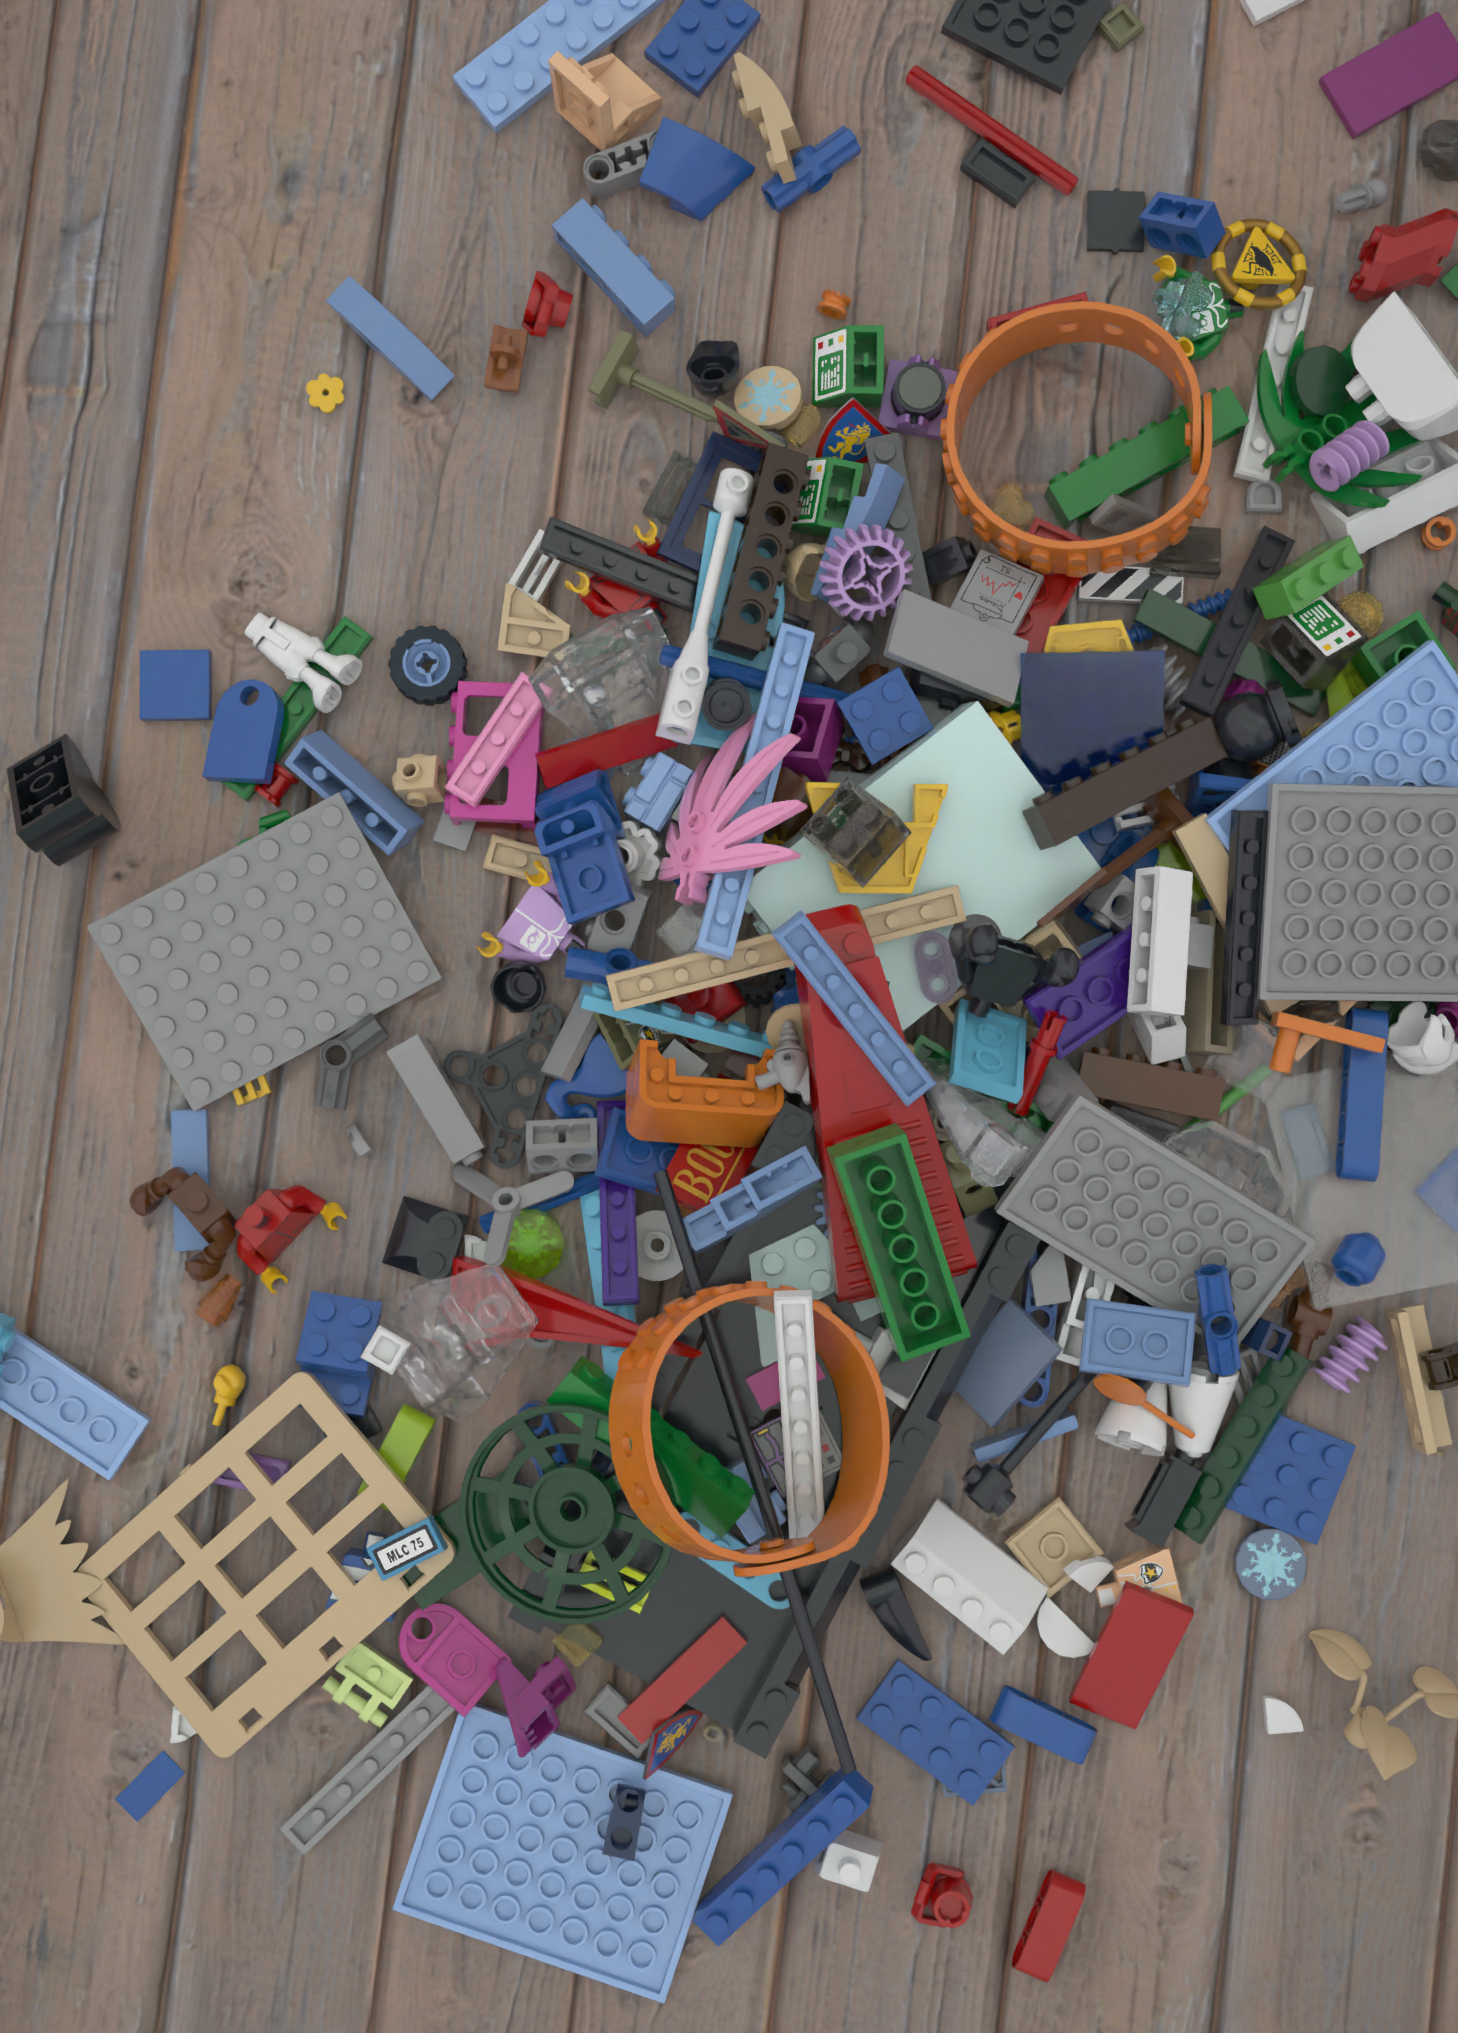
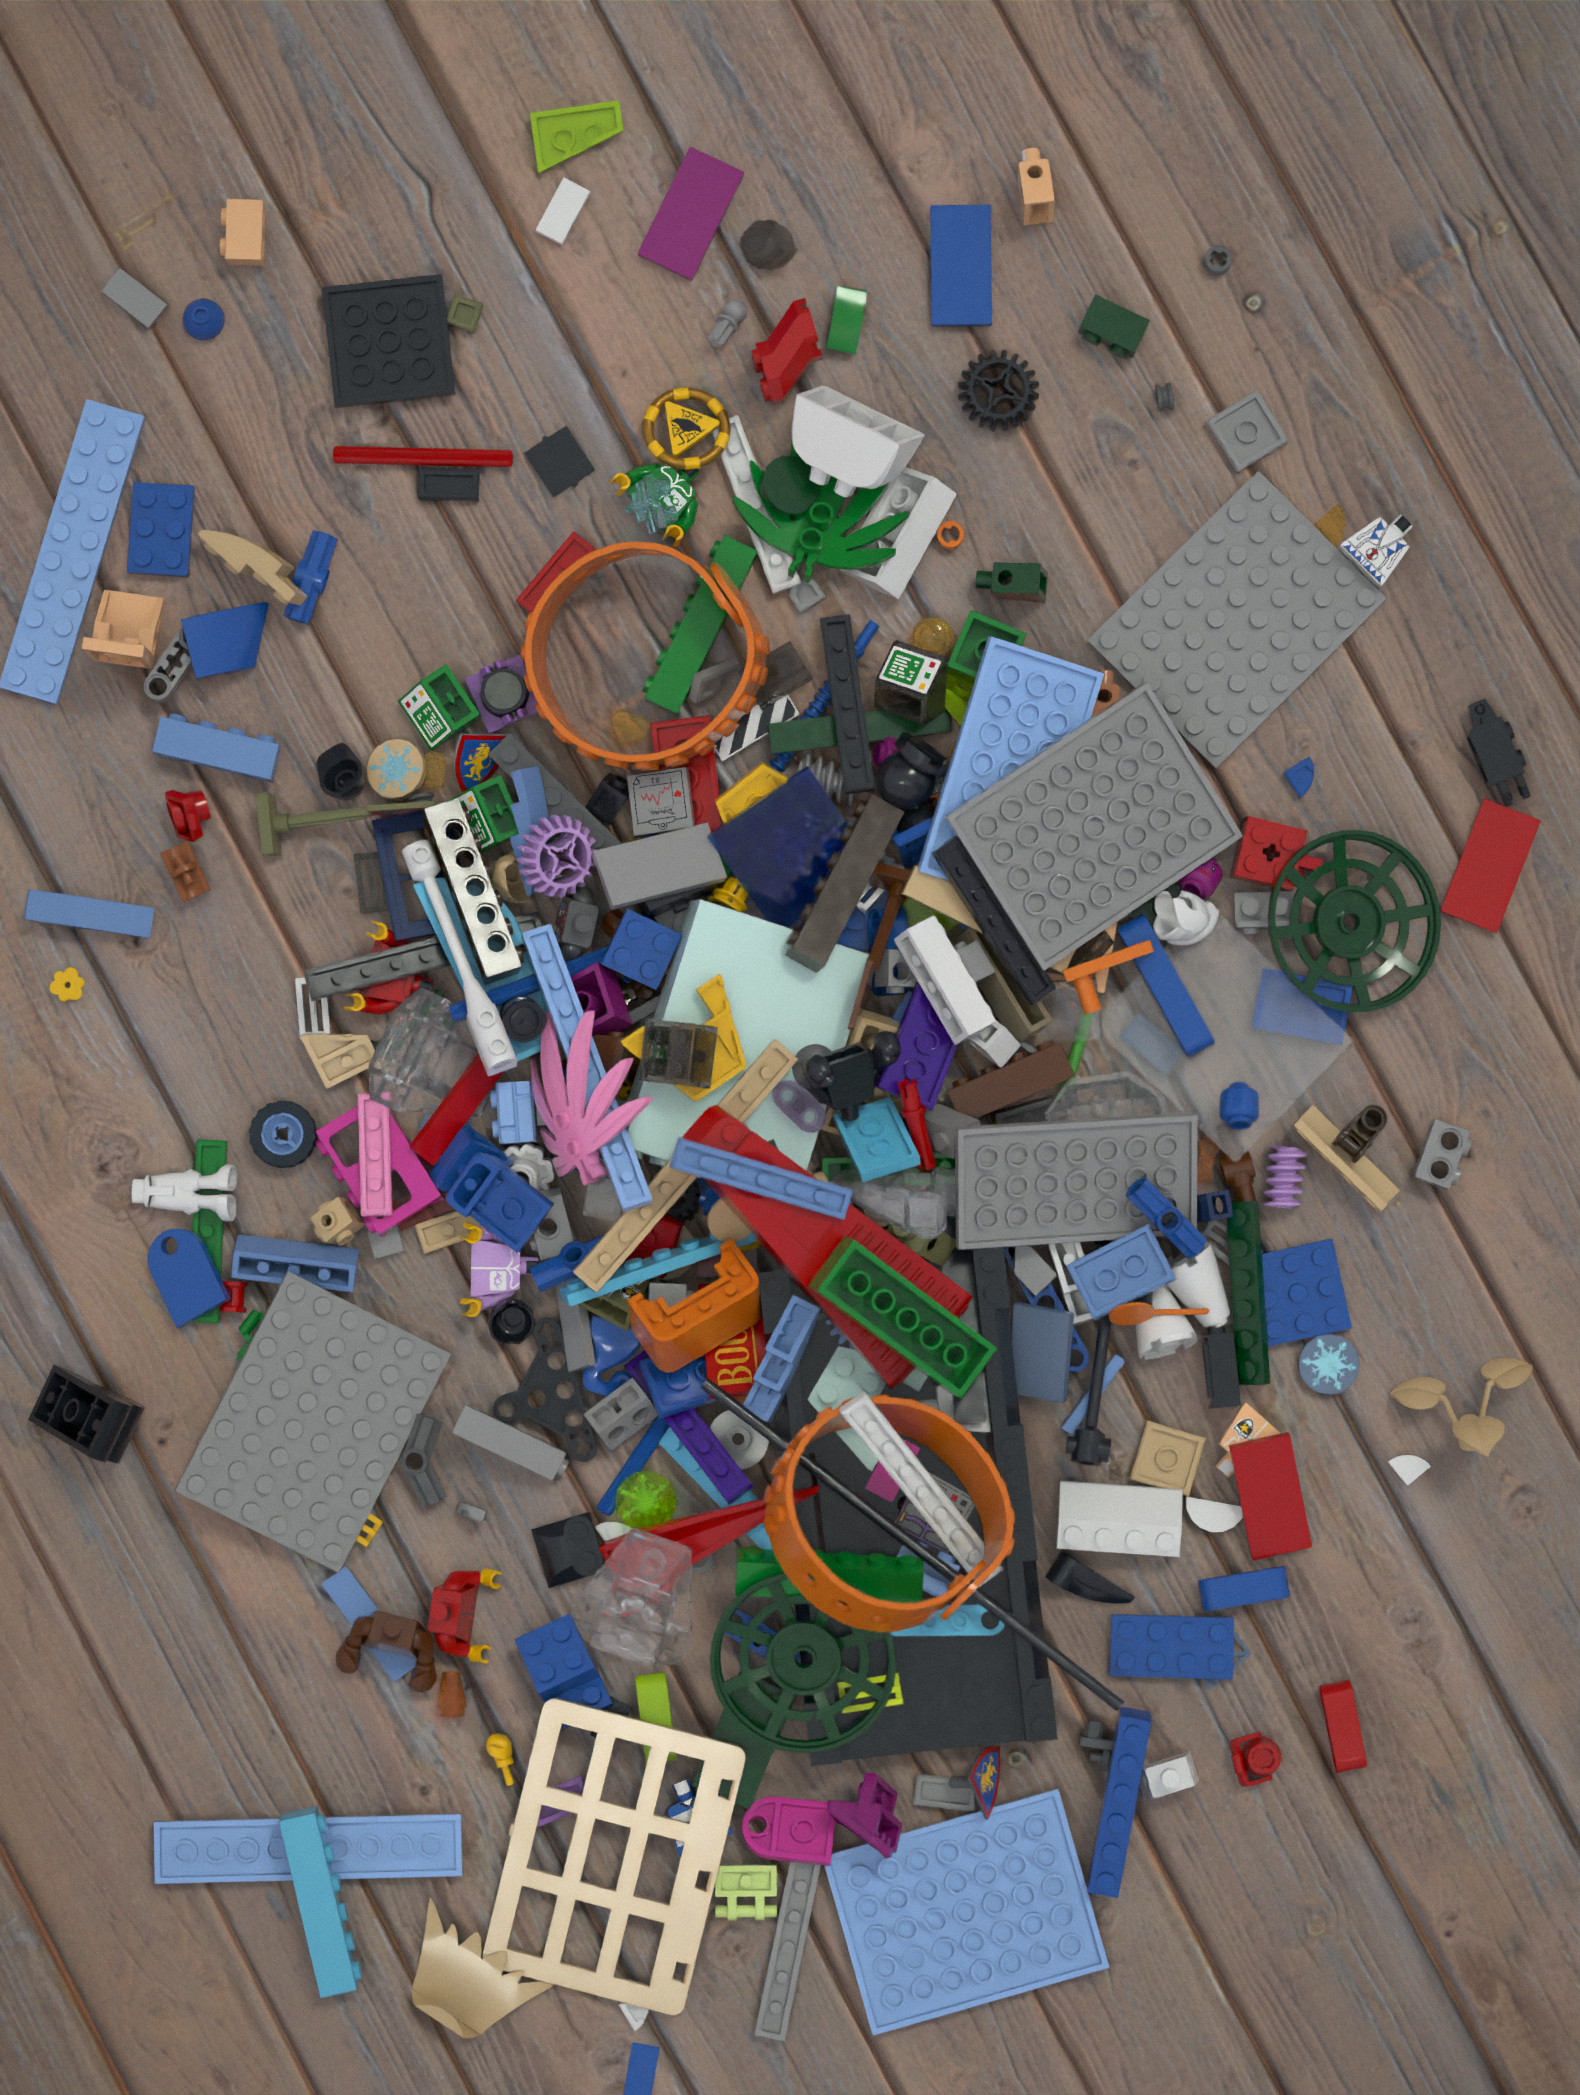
camera: 35 degrees left, 0 degrees up
(175, 685) = (107, 1274): blue tile -> none
(385, 1349) = (596, 1642): white tile -> none
(407, 1548) = (708, 1770): tile -> none
(520, 1199) = (617, 1472): light grey piece -> none
(577, 1642) = (873, 1753): clear yellow tile -> none
(624, 1822) = (993, 1857): dark blue leg -> none
(682, 1678) = (964, 1728): red tile -> none
(788, 1065) = (743, 1247): light grey piece -> none
(834, 305) = (396, 667): orange bush -> none
(1089, 1571) = (1202, 1458): white tile -> none
(1182, 224) = (611, 440): blue brick -> none
(1308, 577) = (876, 638): bright green brick -> none
(1348, 455) = (842, 531): lavender piece -> none

